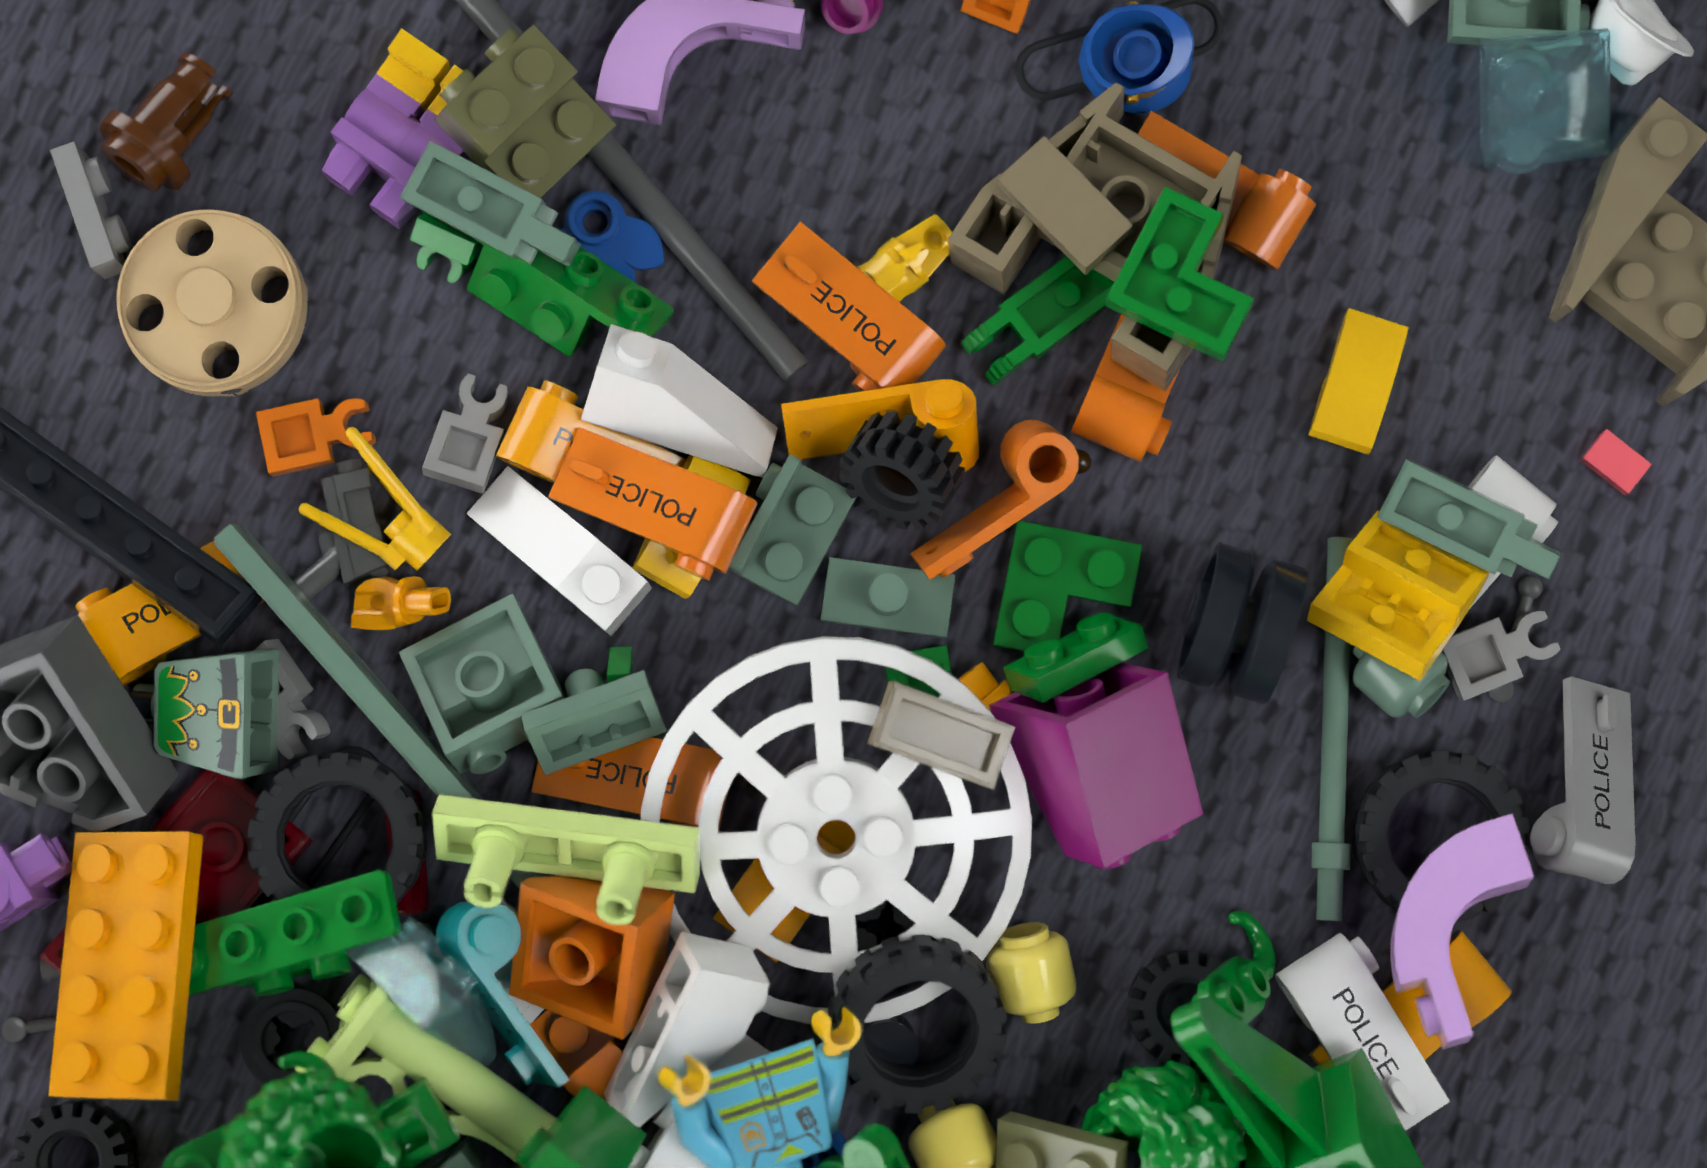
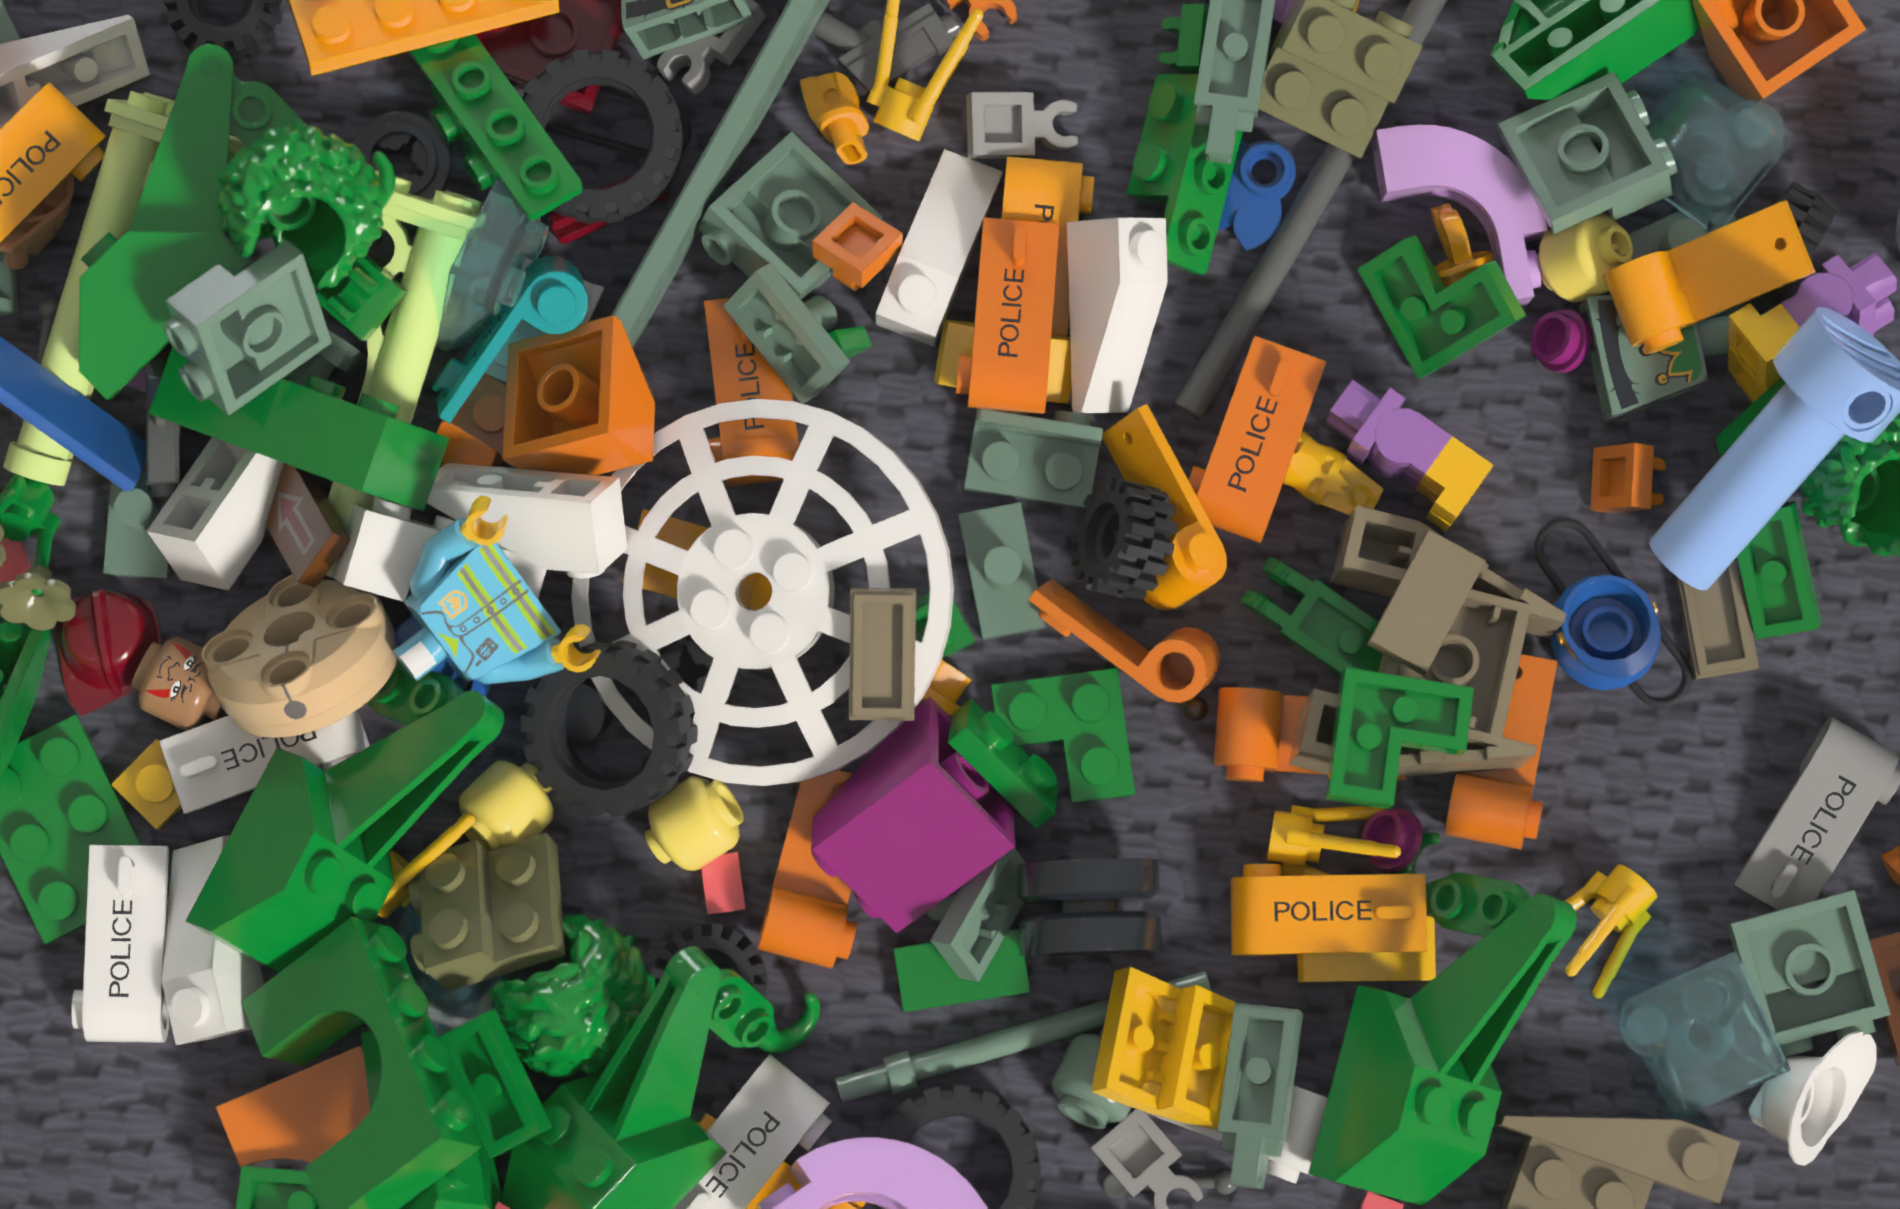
camera: 65 degrees right, 0 degrees up
(533, 626) = (857, 246): none -> orange tile
(567, 844) = (663, 344): yellowish green plate -> none
(754, 70) = (1456, 246): none -> light orange piece
(795, 111) = (1432, 320): none -> green plate
(910, 172) = (1409, 449): none -> medium lavender hips
(1098, 963) = (723, 884): none -> coral piece
(1148, 894) = (805, 904): none -> orange door
(1217, 733) = (978, 917): none -> sand green tile
(1237, 408) = (1299, 840): none -> yellow plant
(1253, 765) = (931, 983): none -> green tile
(1270, 321) = (1394, 828): none -> magenta plate
(1317, 405) = (1326, 913): none -> light orange door
(1395, 133) = (1619, 903): none -> yellow plant
(1496, 367) = (1416, 1073): none -> green slope

